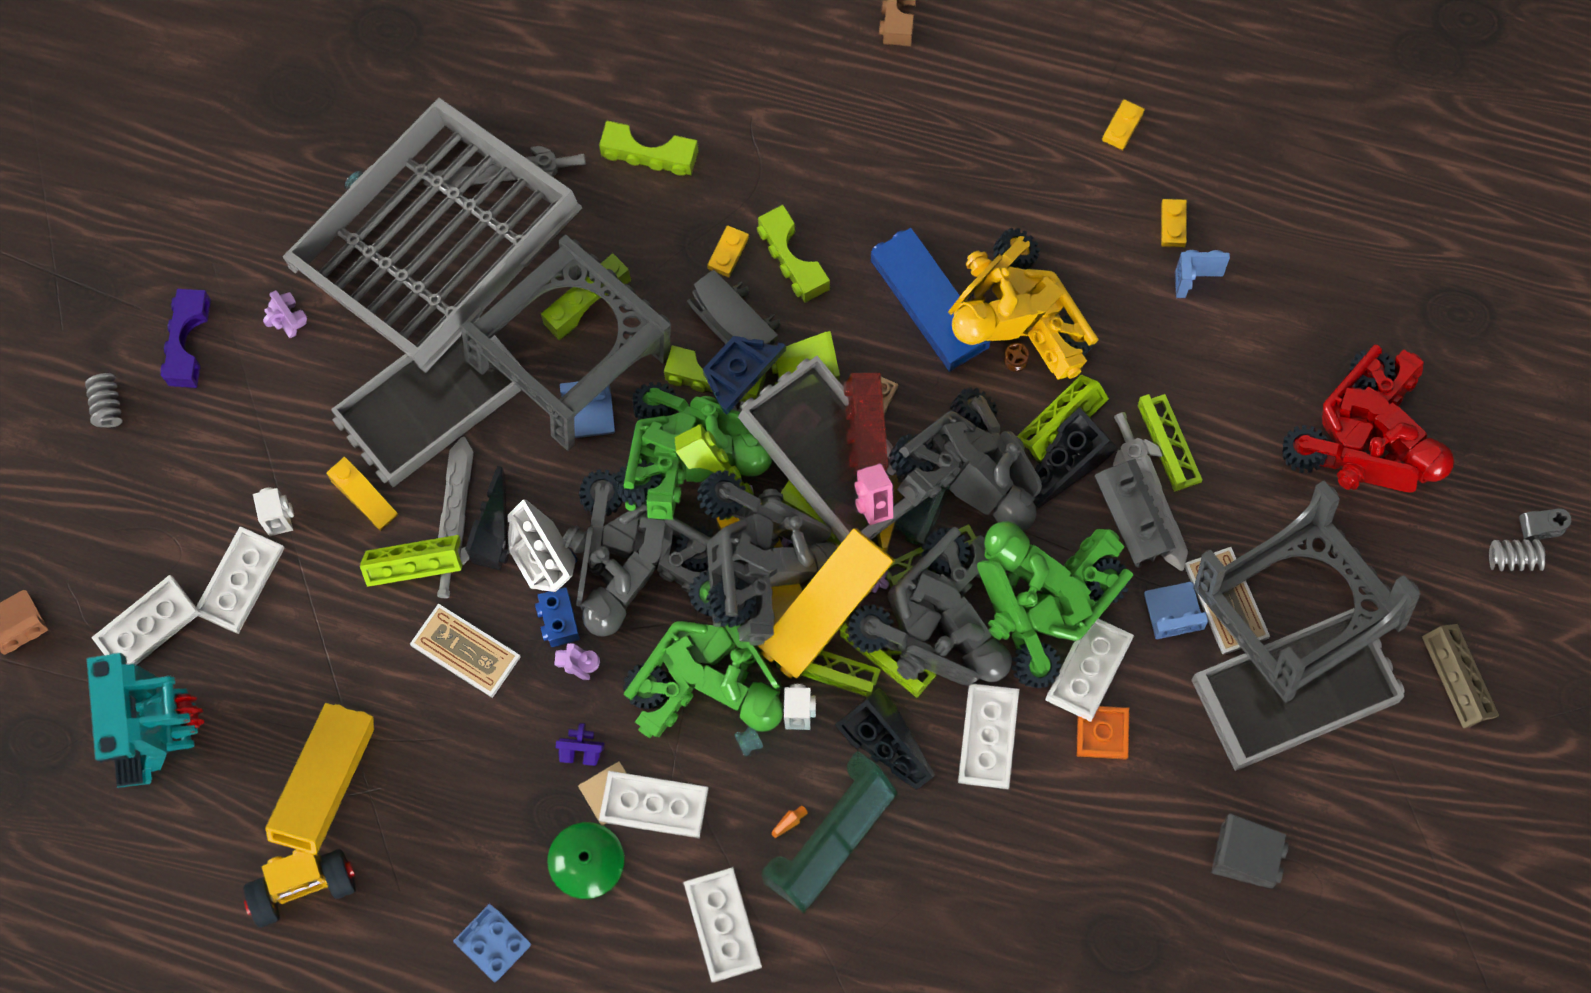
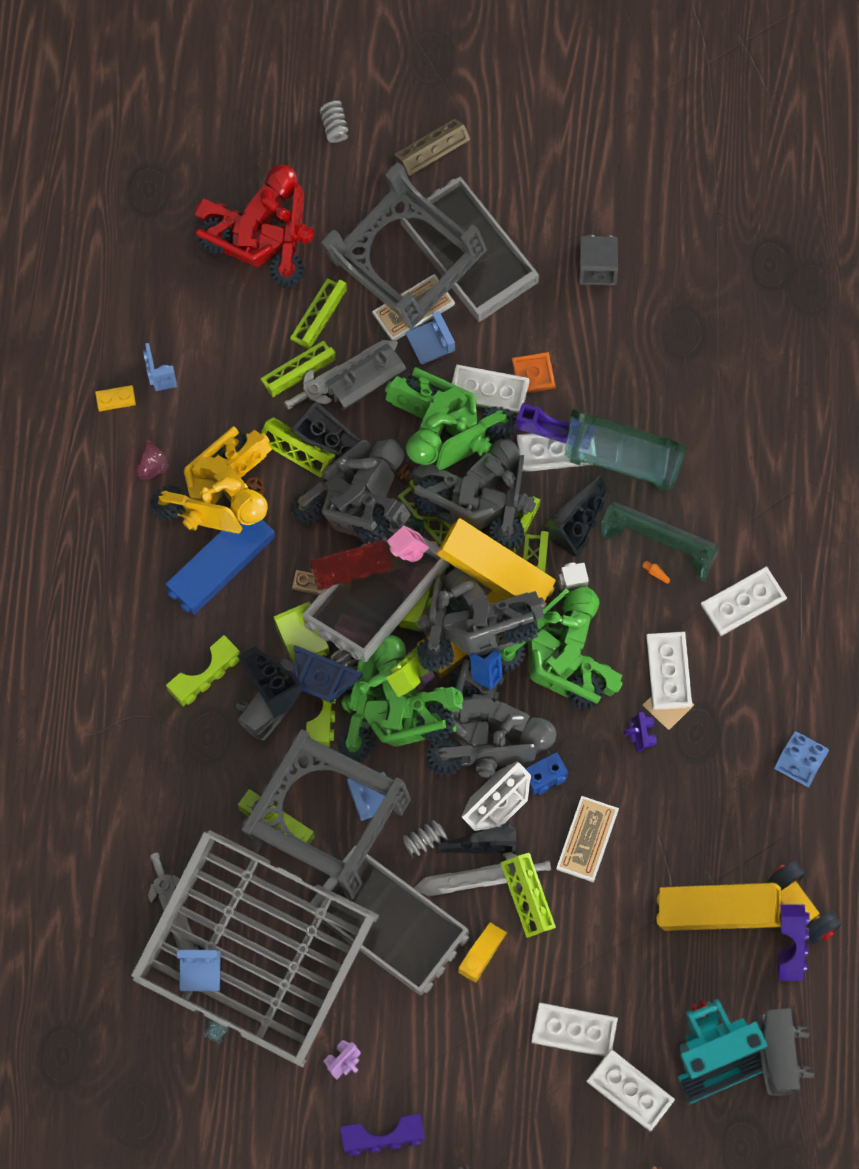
camera: 105 degrees left, 0 degrees up
(126, 806) = (779, 1057): none -> dark grey piece
(241, 855) = (791, 961): none -> dark purple arch
(273, 511) = (516, 1012): white brick -> none
(430, 174) = (199, 970): none -> medium blue bracket
(515, 458) = (423, 838): none -> light grey piece
(577, 661) = (579, 746): lavender hips -> none
(589, 877) = (719, 720): green dish -> none
(675, 156) = (133, 829): lime arch -> none
(690, 562) = (486, 671): none -> blue panel
(728, 251) = (210, 724): yellow plate -> none
(747, 307) = (273, 682): none -> black wedge
(748, 741) = (605, 612): clear light blue wheel -> none
(959, 810) = (623, 449): none -> clear light blue windscreen
(1013, 732) = (535, 421): none -> dark purple arch
(1075, 244) = (152, 462): none -> clear pink hair
(1123, 124) = (37, 450): yellow plate -> none
(1238, 486) = (322, 315): none -> lime fence
(1540, 523) = (306, 109): dark grey piece -> none

